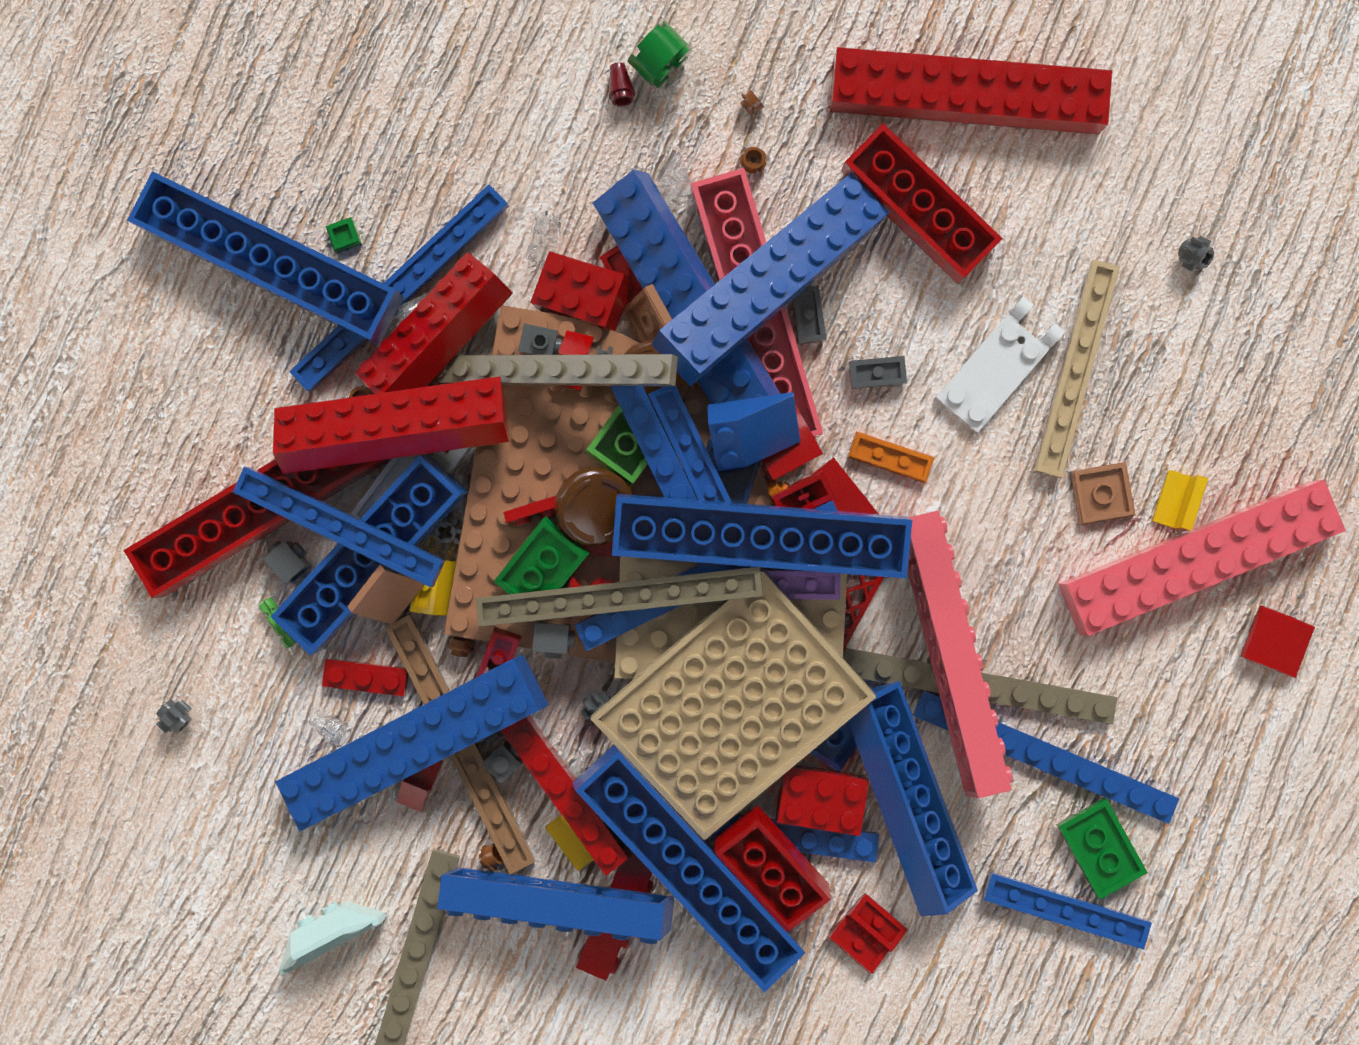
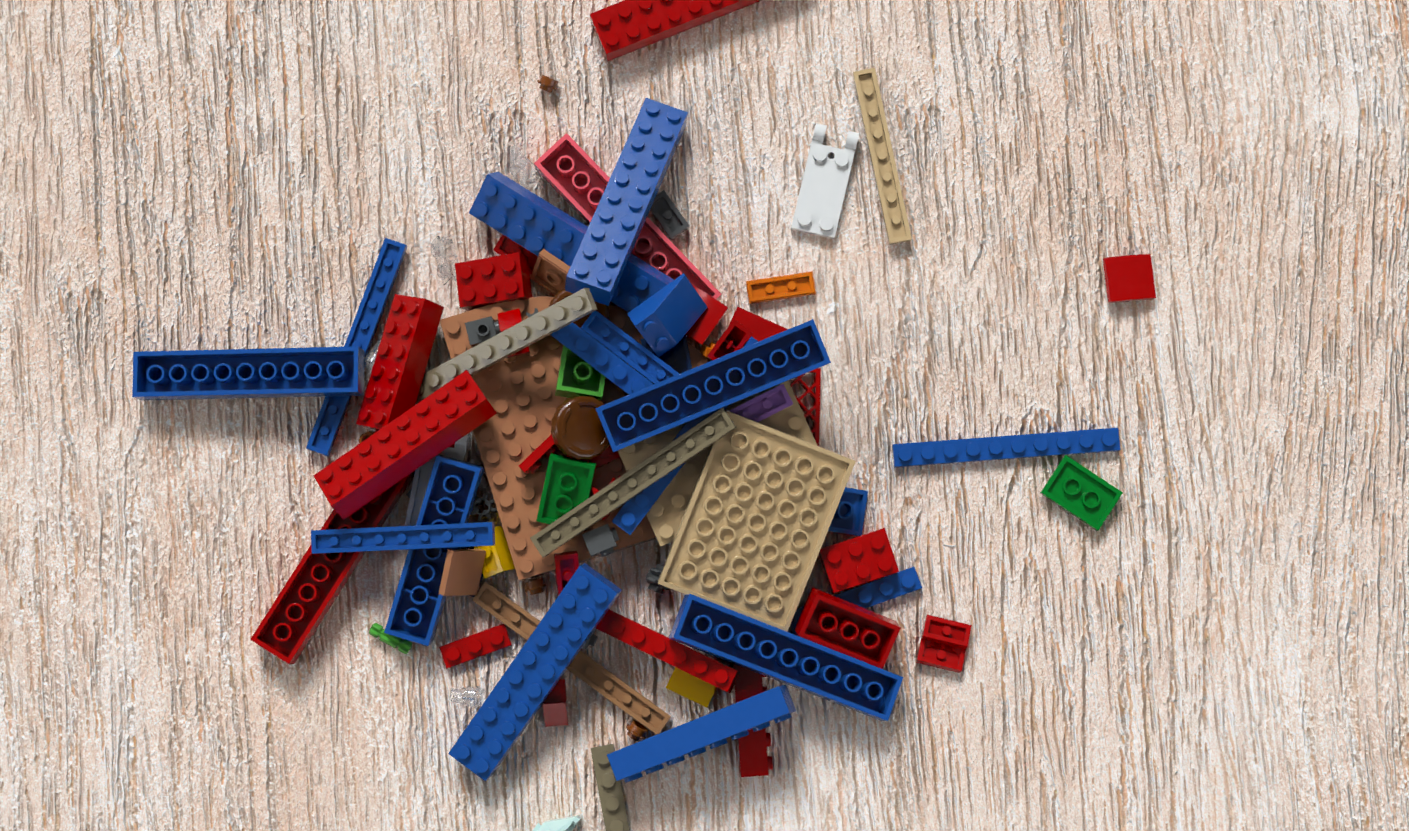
camera: 30 degrees left, 5 degrees down
(173, 716) = (347, 746): dark grey gear -> none
(287, 560) = (374, 588): dark grey brick -> none
(343, 235) = (295, 329): green tile -> none
(503, 762) = (610, 653): dark grey brick -> none
(620, 85) = (446, 120): dark red cone -> none
(659, 54) = (462, 83): green brick -> none
(758, 154) = (565, 119): dark orange plate -> none
(877, 372) = (739, 231): dark grey plate -> none
(912, 802) = (922, 527): blue brick -> none
(922, 204) = (708, 94): red brick -> none
(955, 660) = (899, 406): coral brick -> none
(1003, 689) = (934, 419): dark tan plate -> none
(1066, 910) = (1079, 551): blue plate -> none
(1102, 493) = (947, 236): nougat tile -> none
(1179, 500) = (1005, 213): yellow panel -> none
(1196, 253) = (924, 31): dark grey gear -> none
(1201, 557) = (1041, 246): coral brick -> none

